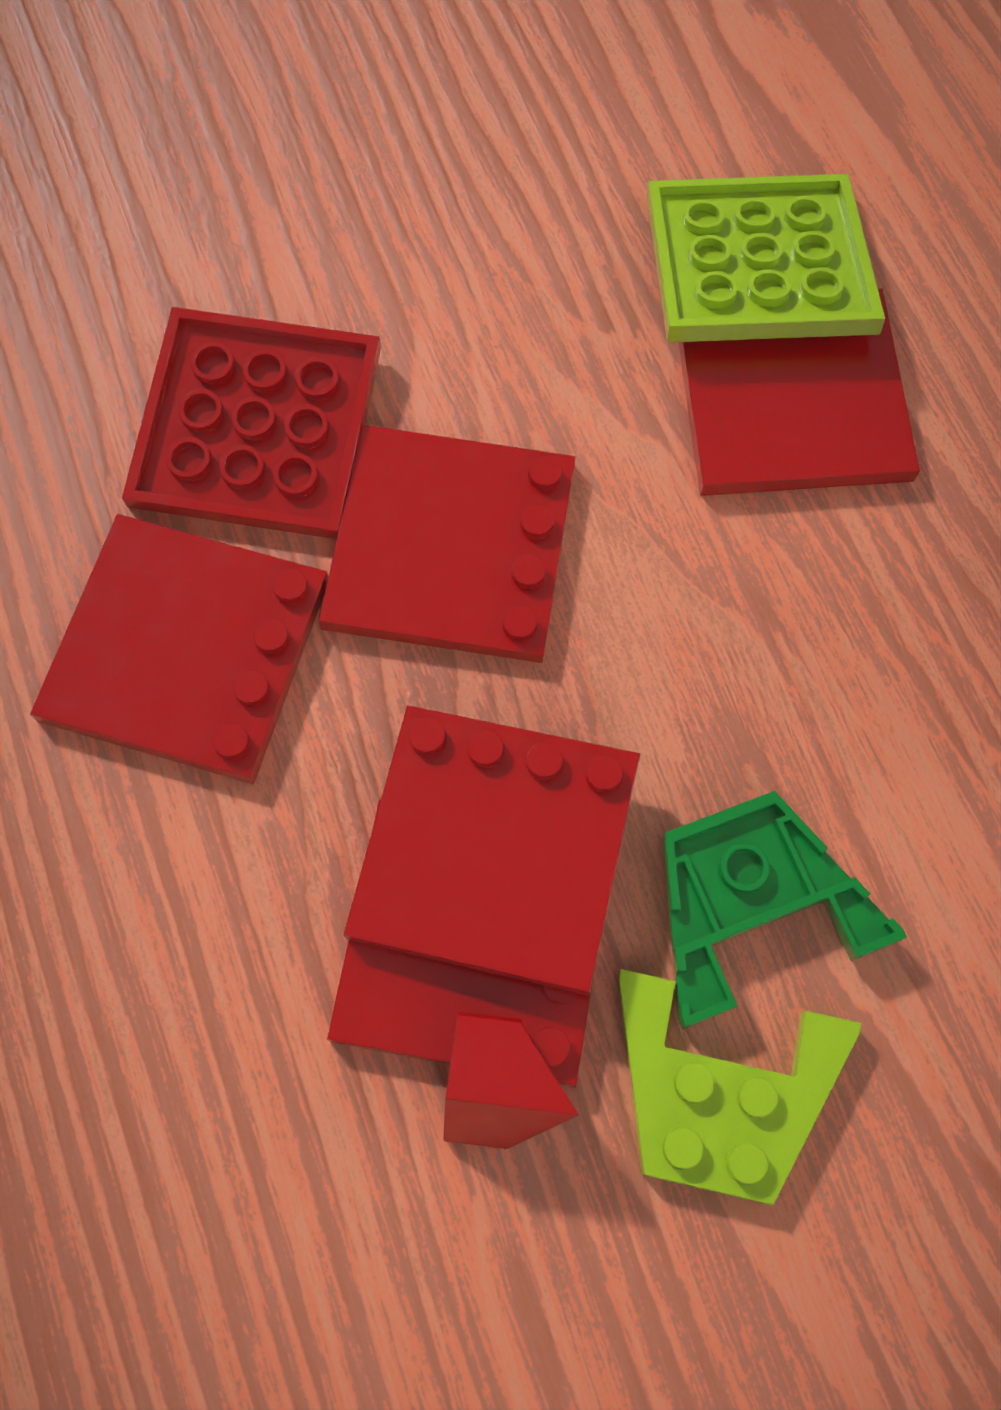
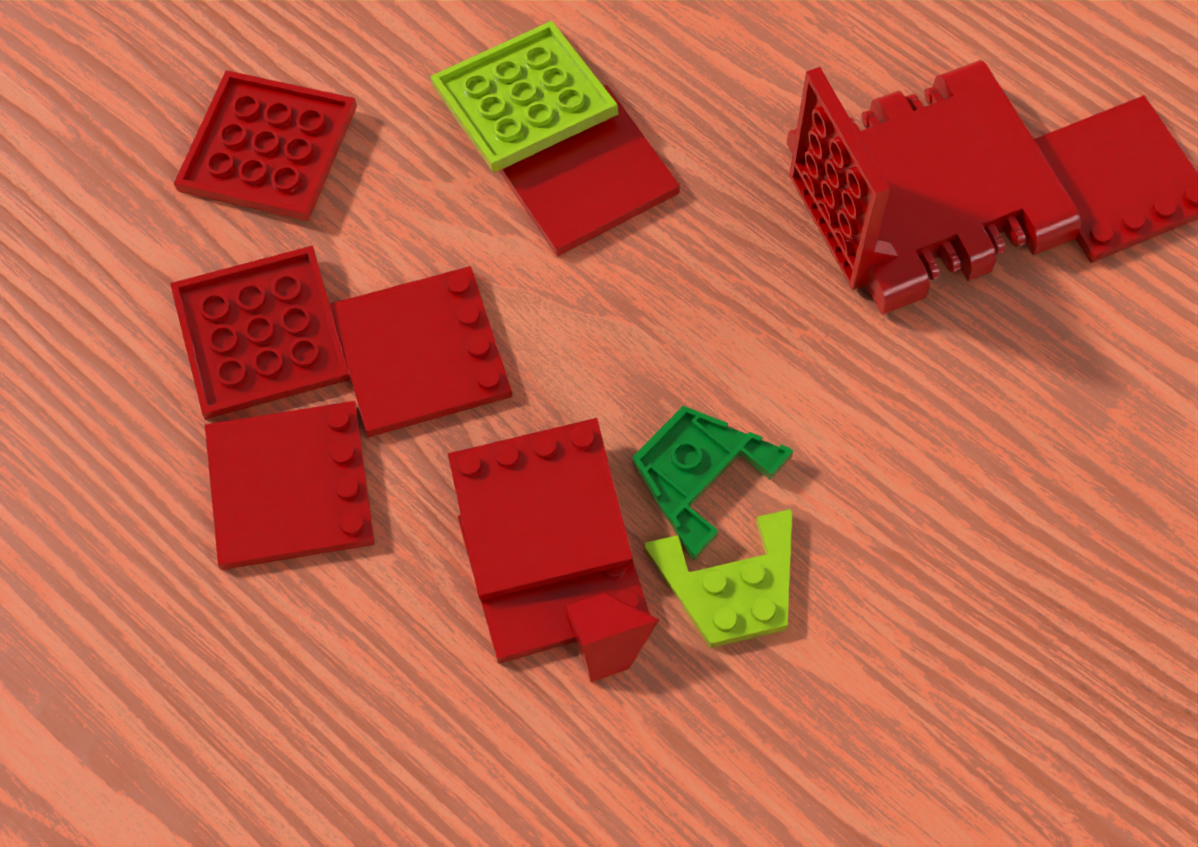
camera: 25 degrees left, 5 degrees down
(392, 184) = (266, 145): none -> red plate

